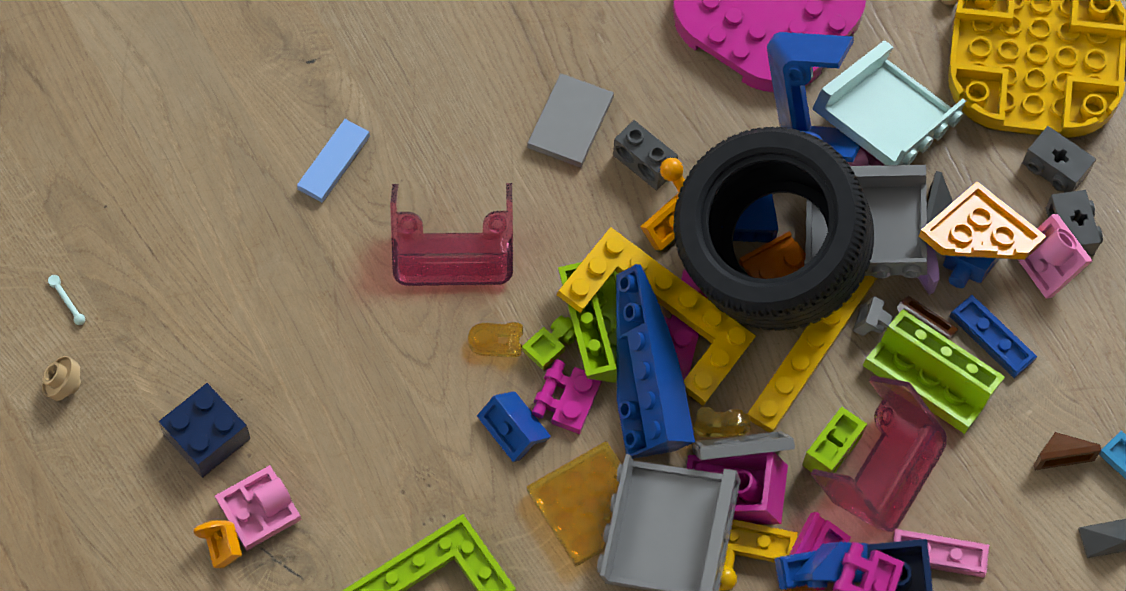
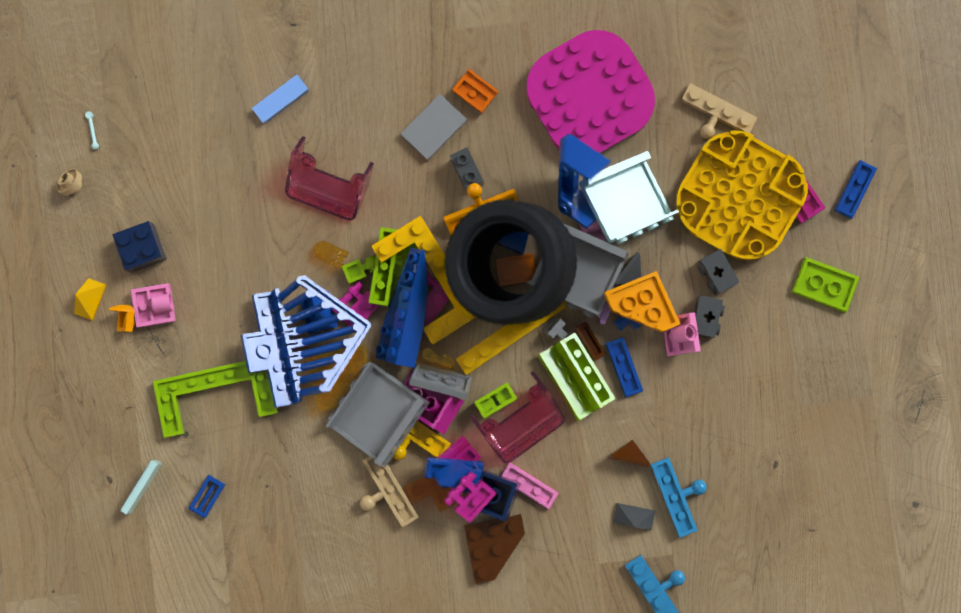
camera: 25 degrees right, 20 degrees up
(152, 538) = (88, 298): none -> yellow slope
(473, 499) = (272, 349): none -> plate
(608, 53) = (475, 91): none -> orange plate

